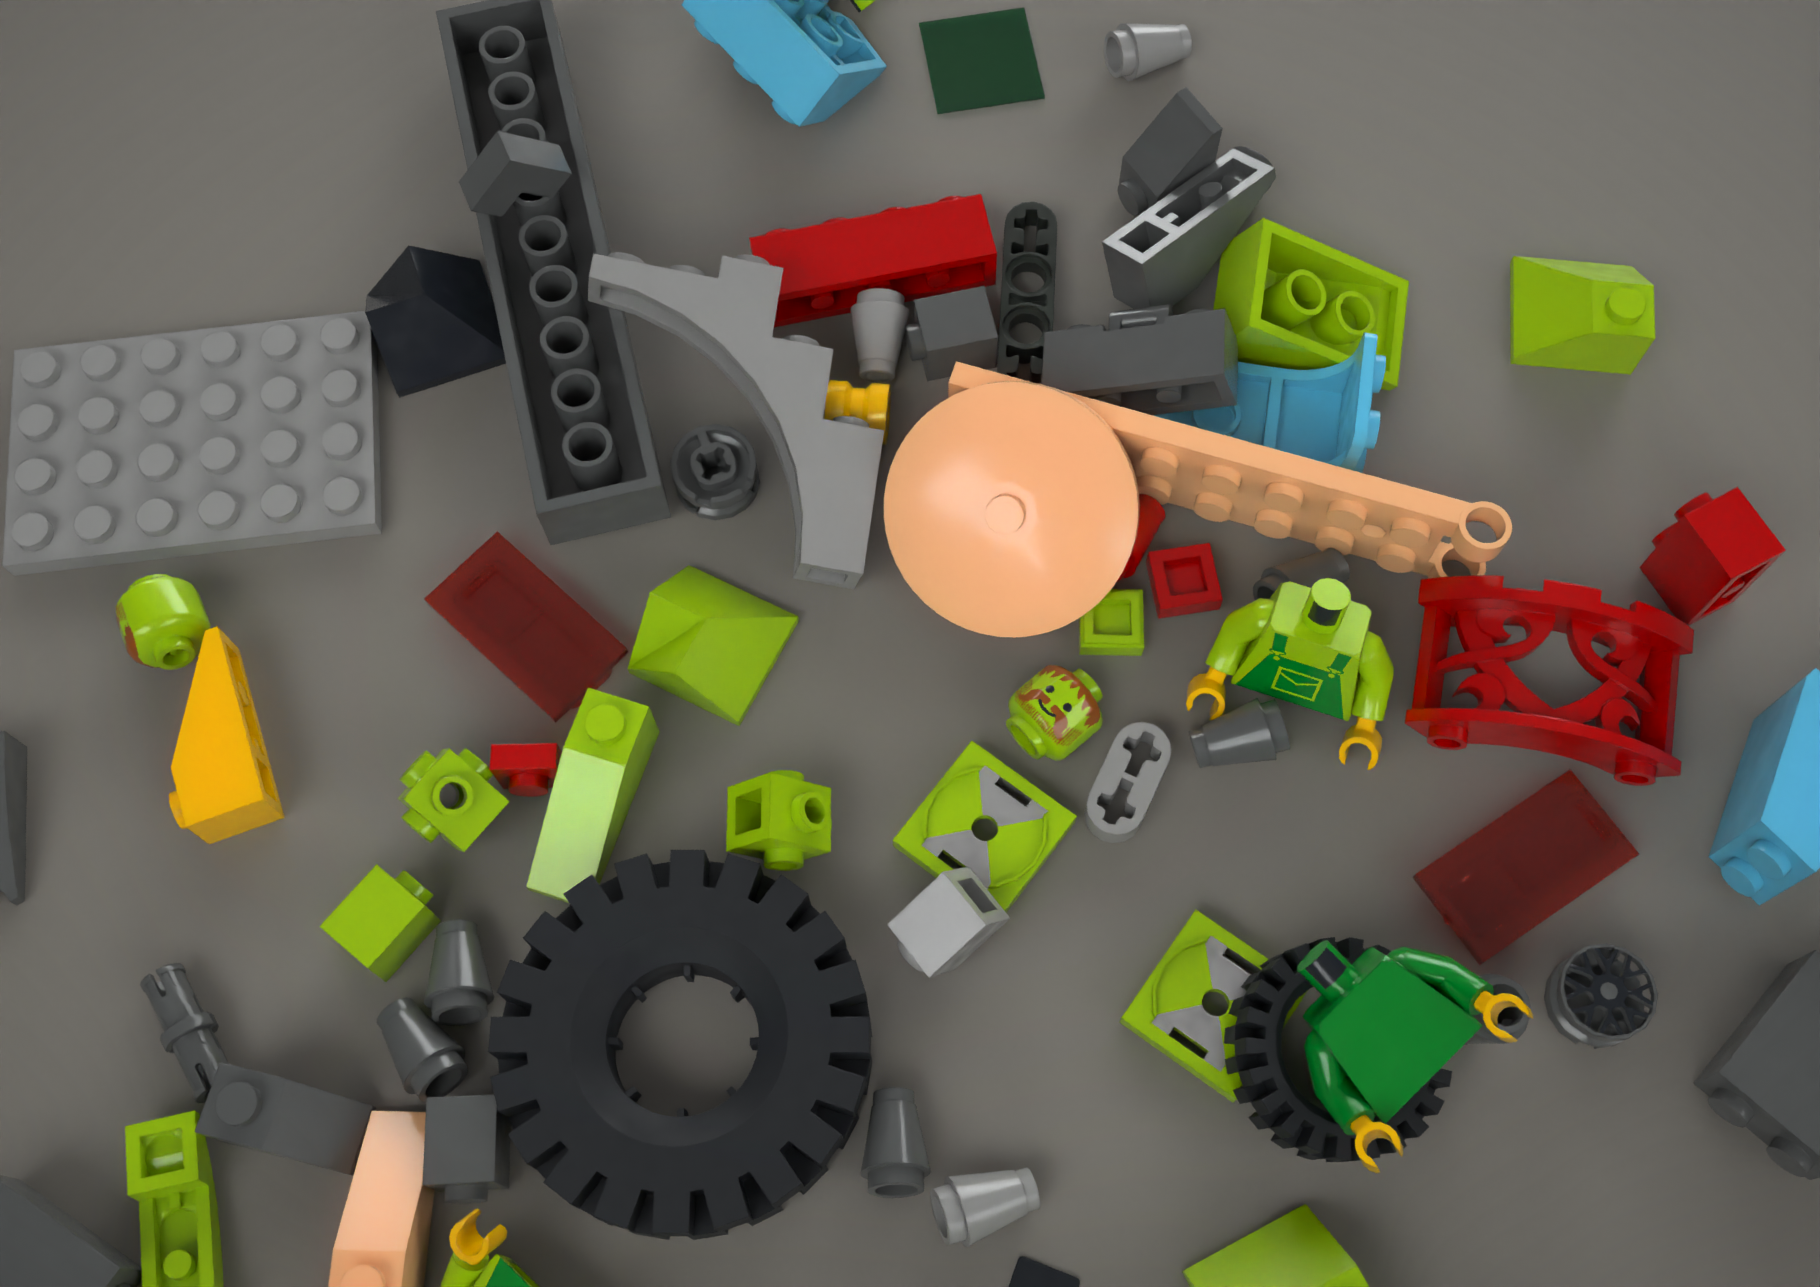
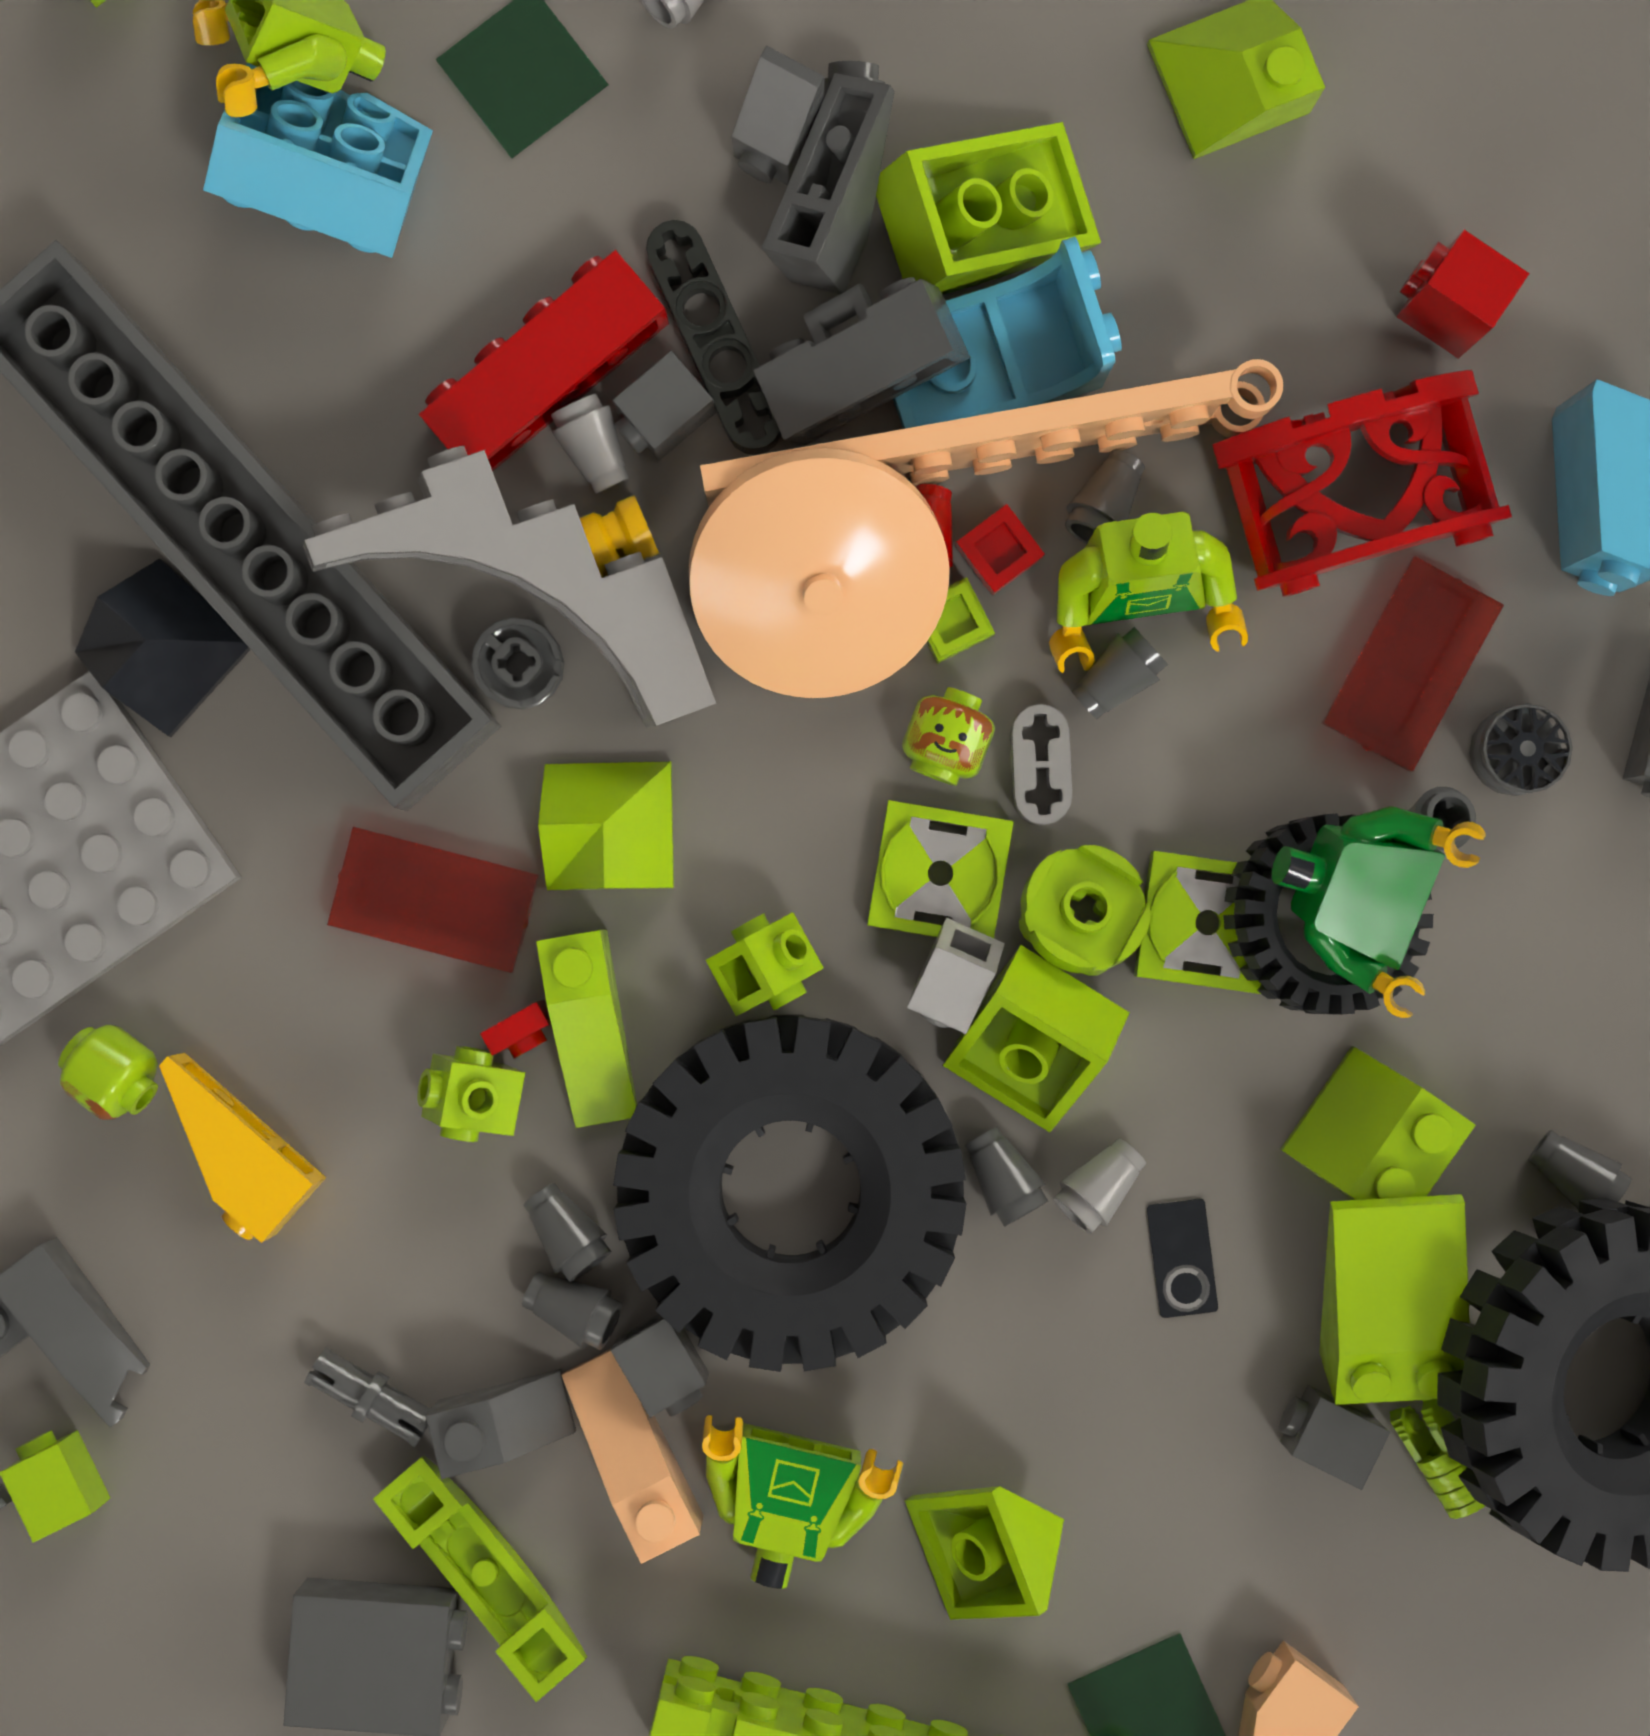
camera: 30 degrees left, 20 degrees up
(382, 920) = (476, 1224): lime brick -> none
(510, 167) = (162, 478): dark grey piece -> none
(993, 1024) = (1037, 1039): none -> lime slope
(1077, 952) = (1119, 902): none -> lime plate

